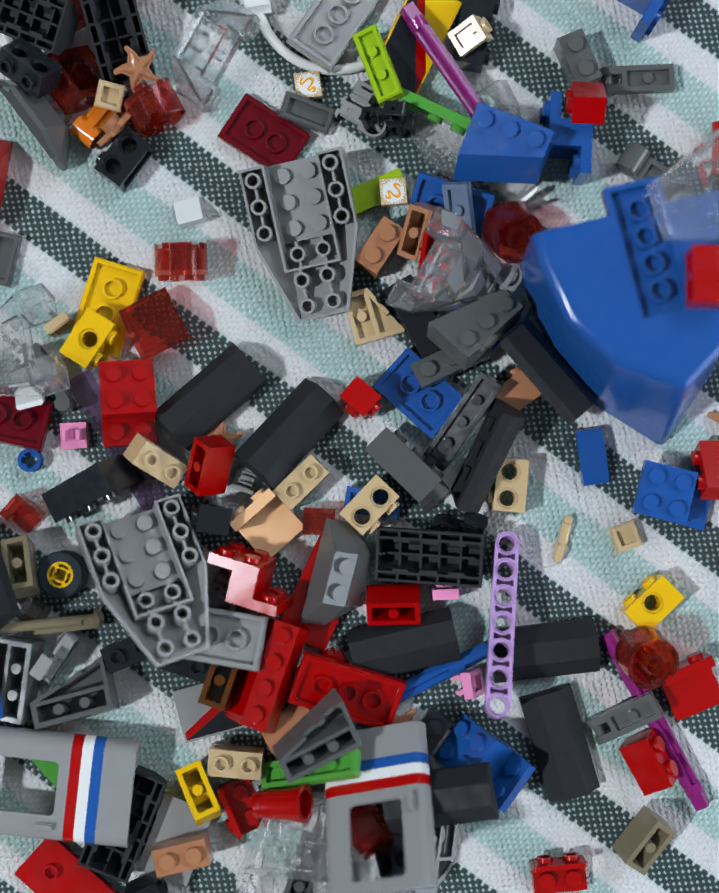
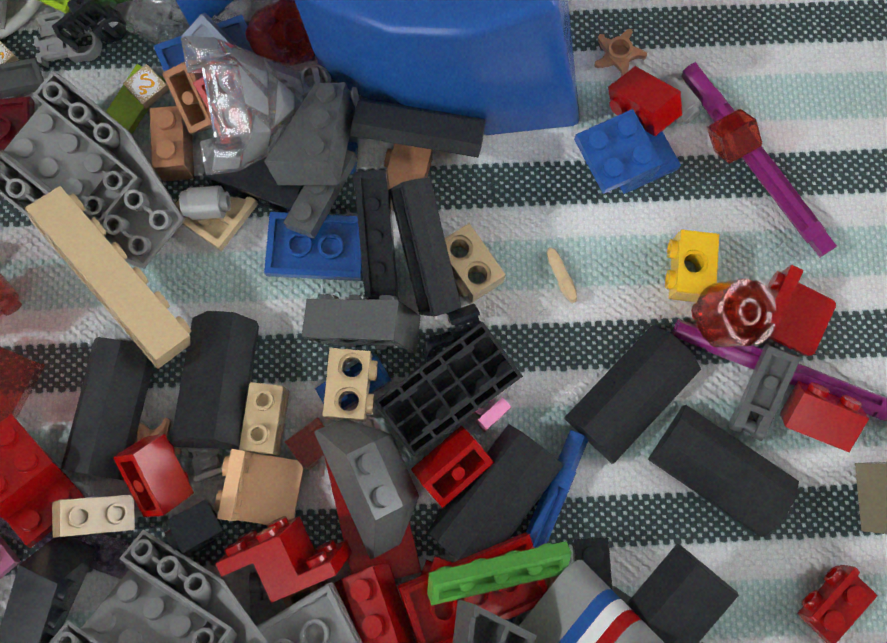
camera: 40 degrees left, 10 degrees down
(275, 316) = (109, 276): none -> tan brick
(360, 399) = (259, 291): red brick -> none
(370, 310) = (204, 202): none -> light grey brick
(370, 692) = (497, 573): none -> bright green plate
(471, 682) = (592, 481): bright pink tile -> none
(472, 744) = (644, 542): blue bracket -> none
(507, 612) = (579, 411): lavender beam -> none
(592, 456) = (525, 178): blue slope -> none
(625, 536) = (616, 227): tan tile -> none

